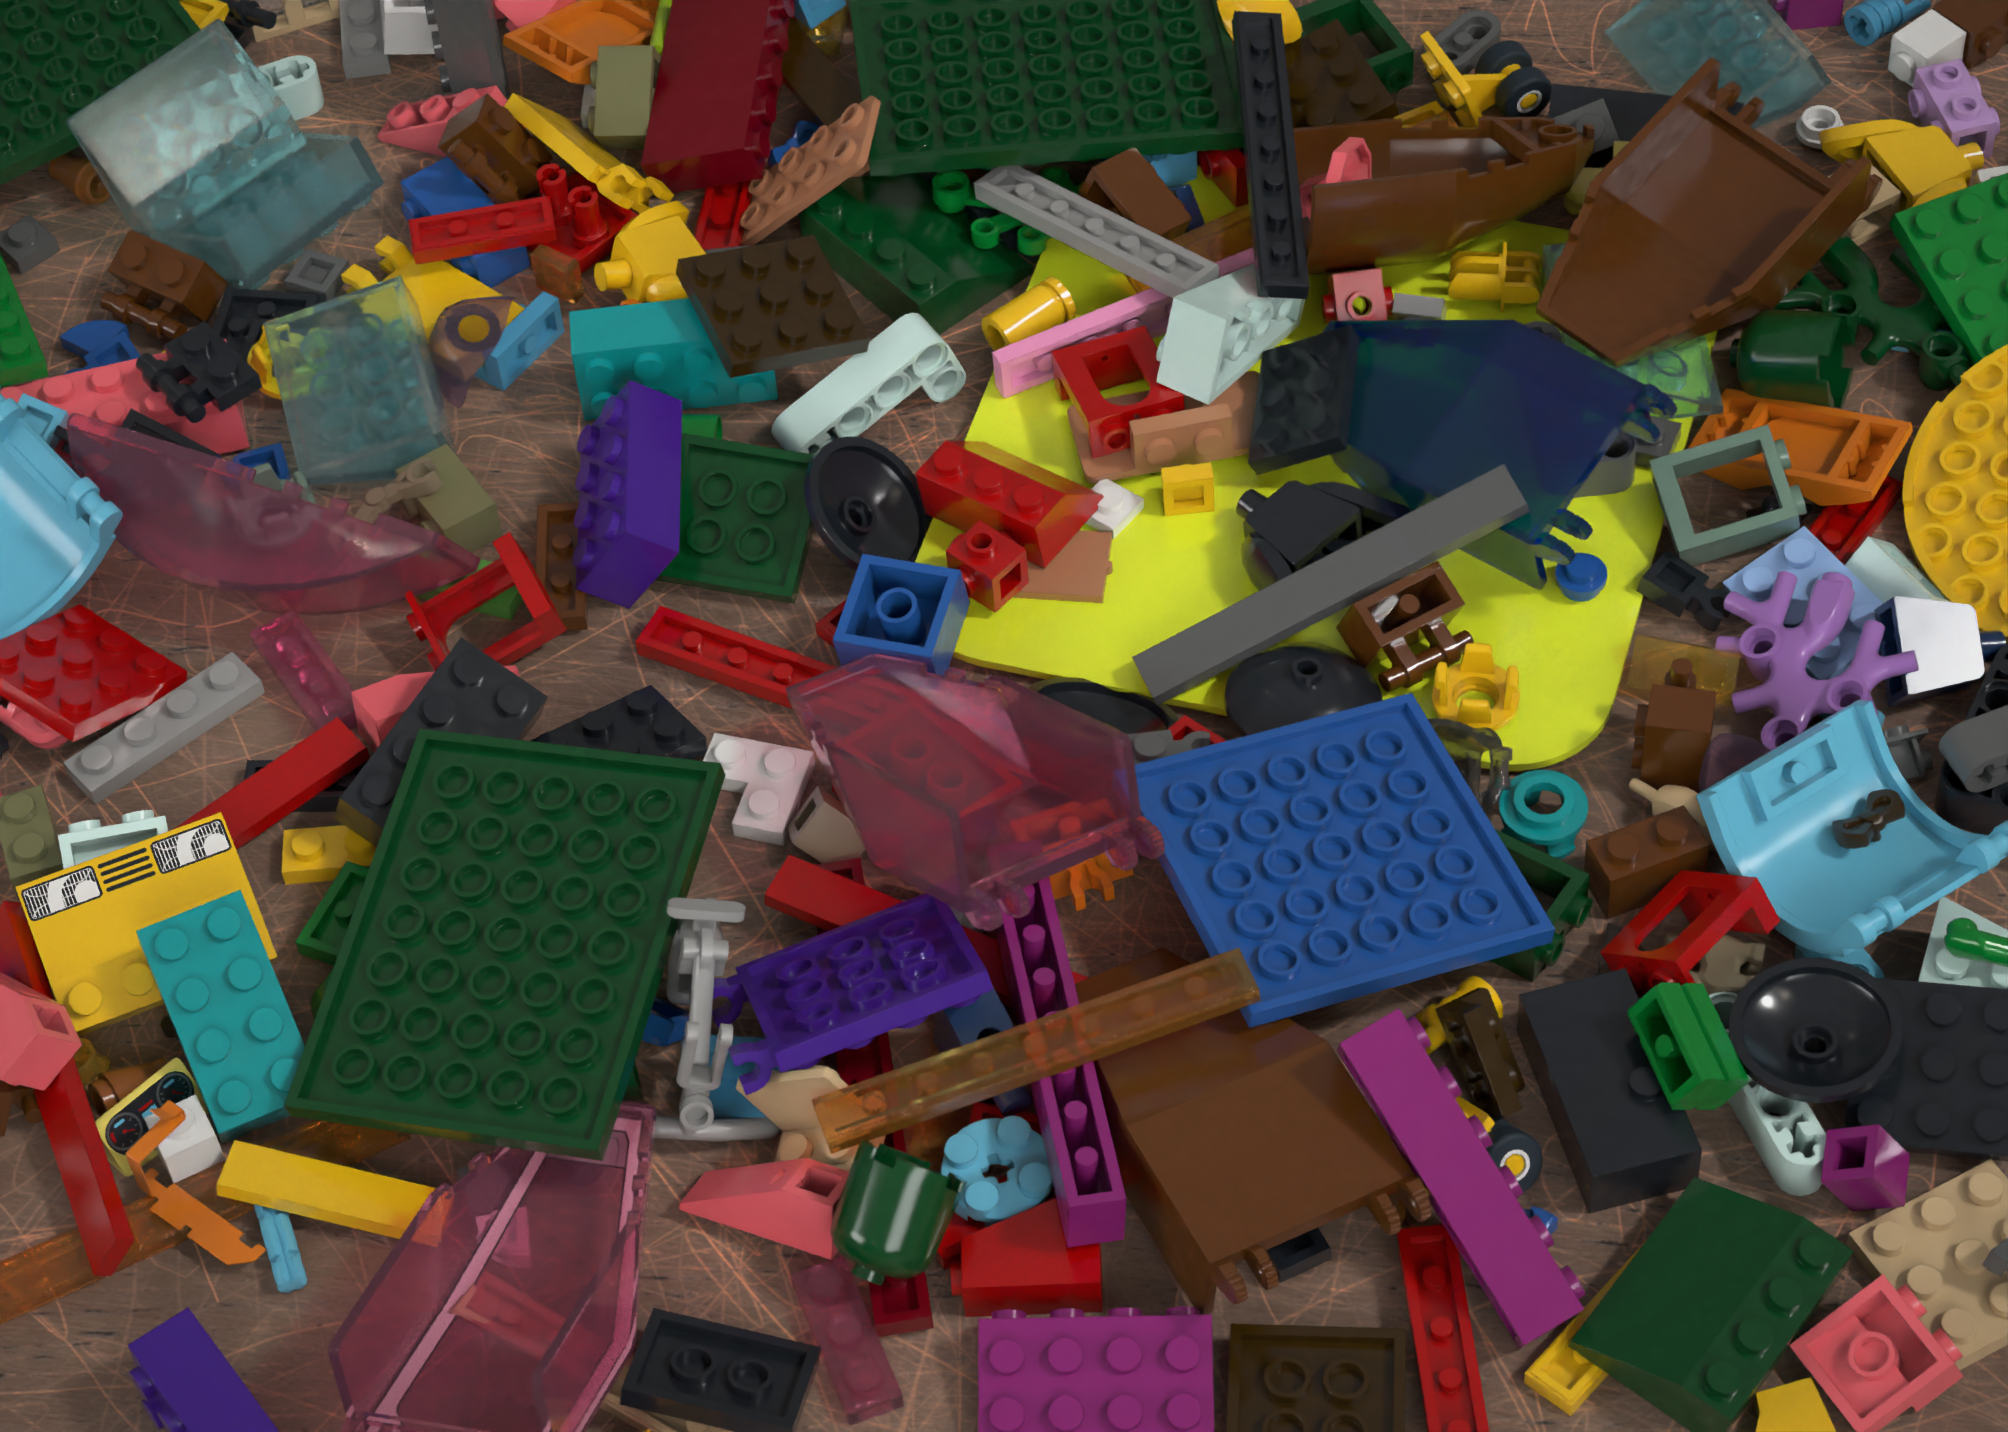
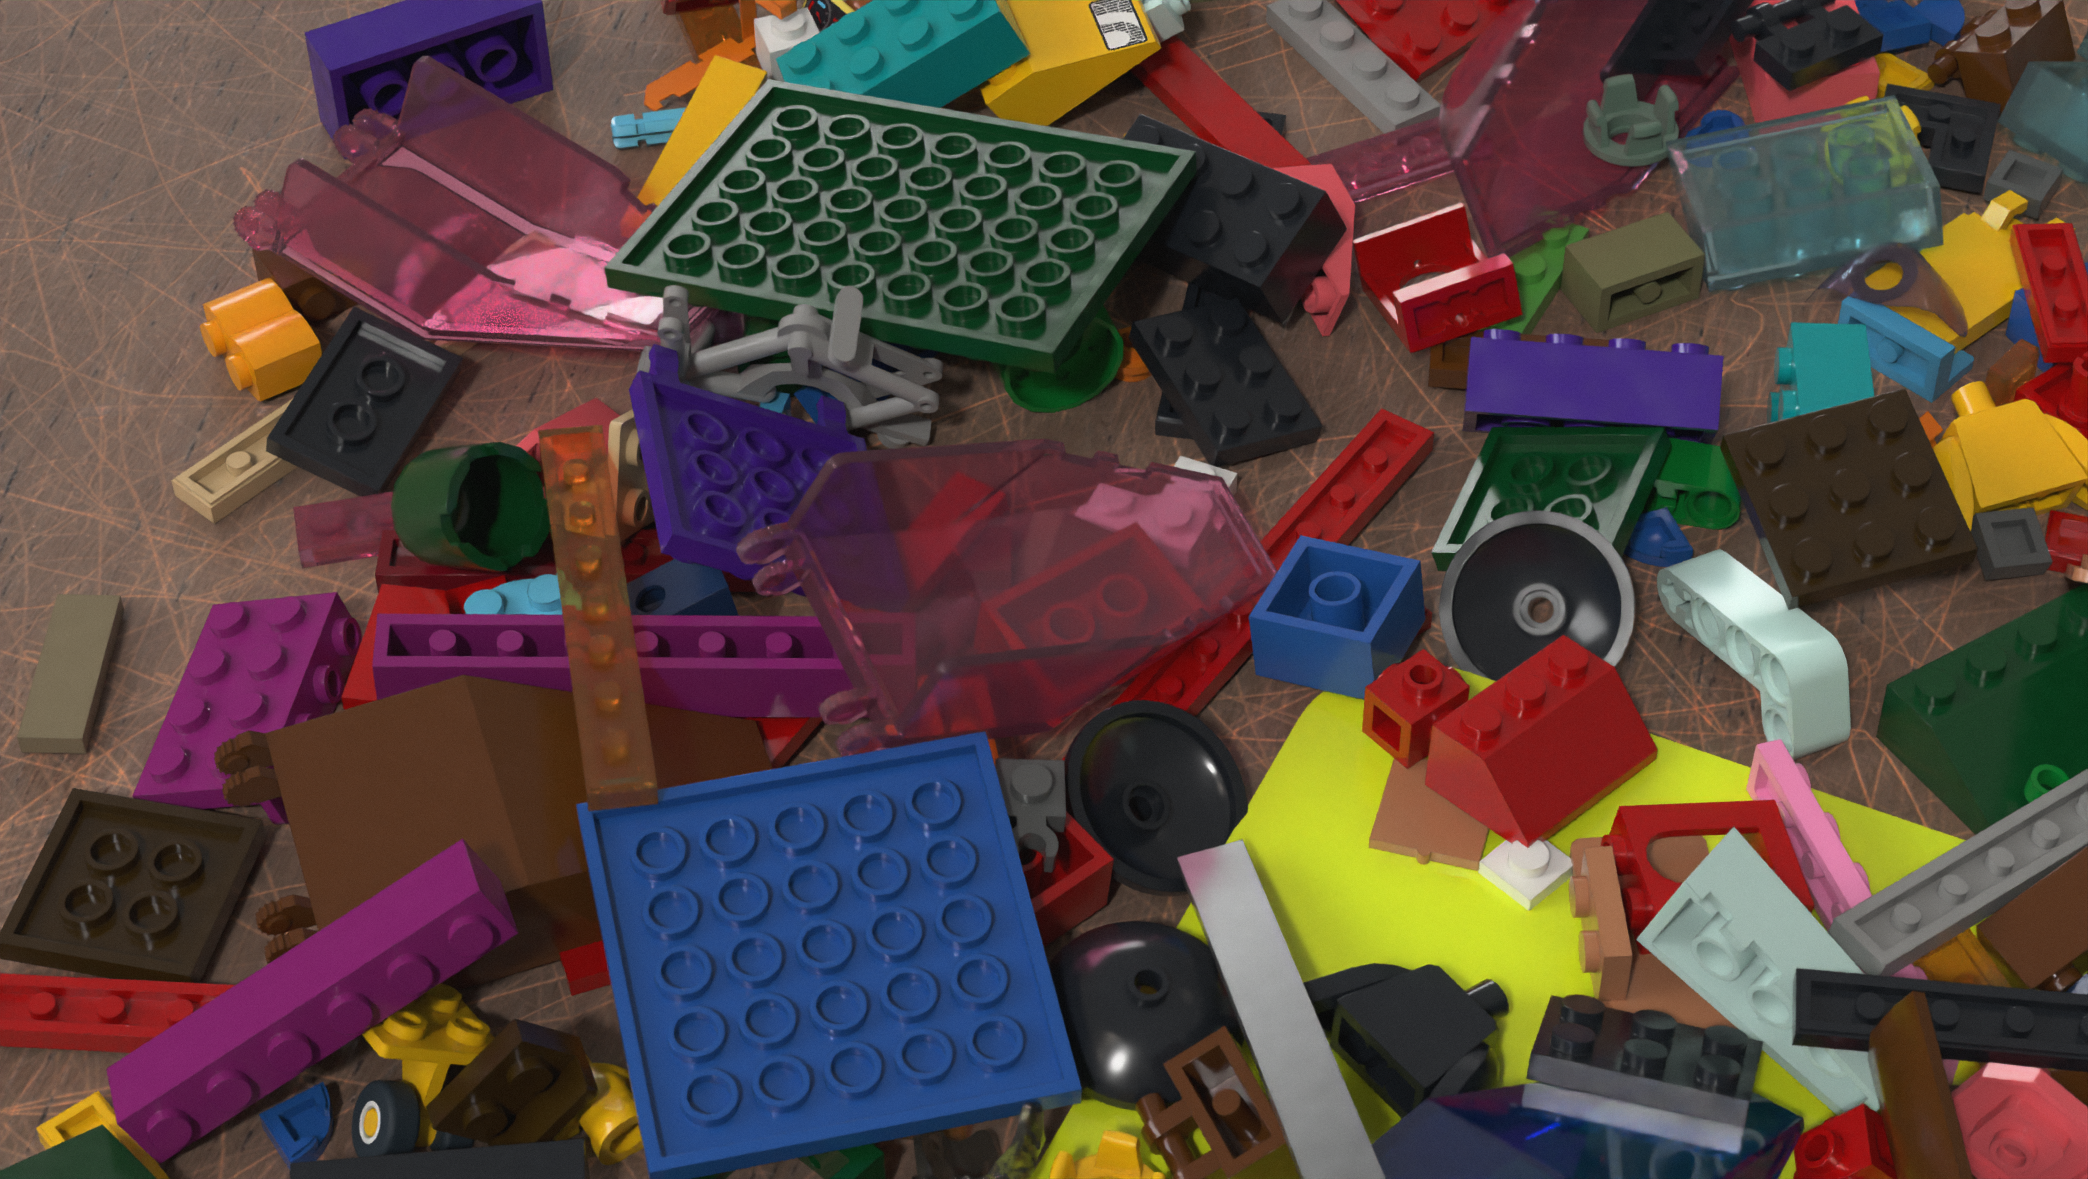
camera: 95 degrees right, 5 degrees down
(415, 481) = (1619, 196): dark tan piece -> none
(1029, 314) = (1870, 808): yellow piece -> none
(1187, 489) = (1530, 936): yellow plate -> none

